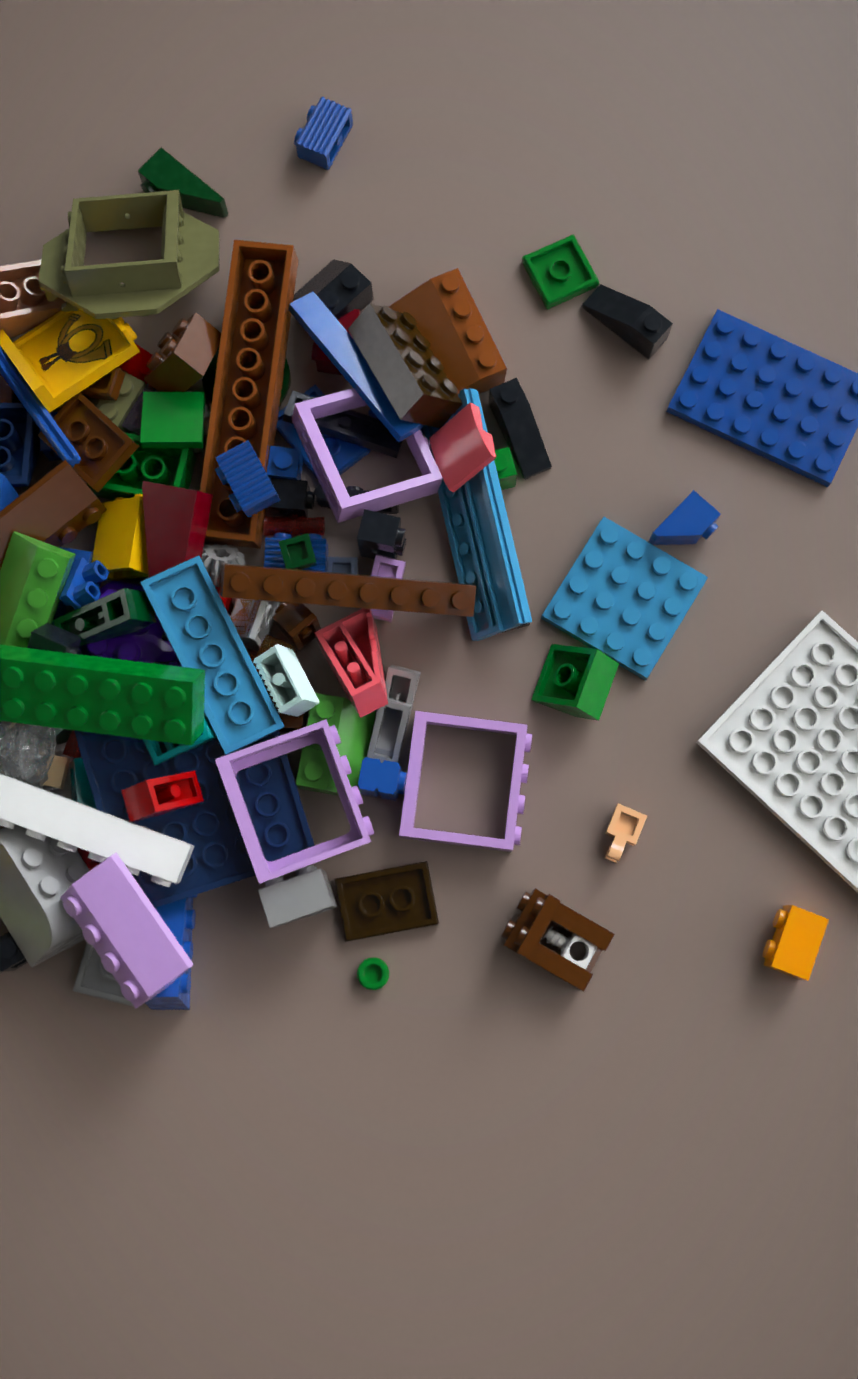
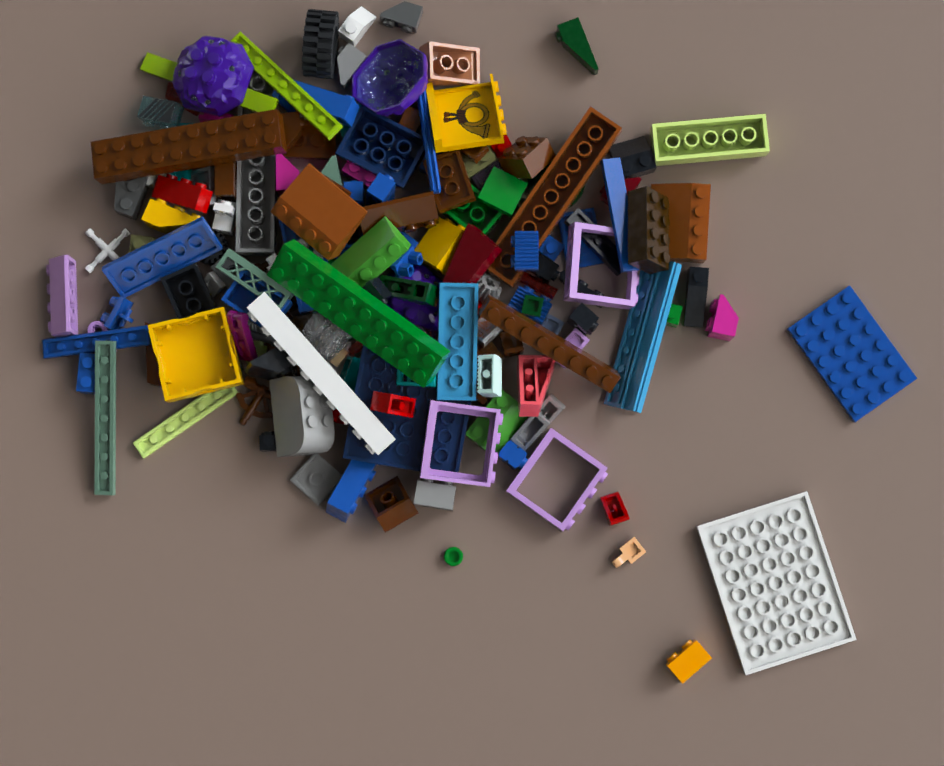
camera: 25 degrees right, 5 degrees up
(125, 931) = (340, 466): lavender slope -> none
(187, 257) = (517, 108): olive hinge -> none
(241, 946) = (391, 504): none -> reddish brown slope
(323, 133) = (678, 55): blue brick -> none
(386, 901) = (480, 522): dark brown tile -> none
(425, 214) = (709, 139): none -> yellowish green brick
(462, 447) = (654, 295): coral slope -> none
(527, 931) = (559, 571): reddish brown brick -> none
(560, 271) = (771, 213): green tile -> none
(568, 779) = (614, 508): none -> red slope
(575, 437) = (723, 320): none -> dark pink slope
(575, 681) = (648, 457): green slope -> none
(624, 598) = (701, 425): dark azure plate -> none
(629, 319) = (794, 263): black slope -> none
(687, 523) = (760, 402): blue slope -> none

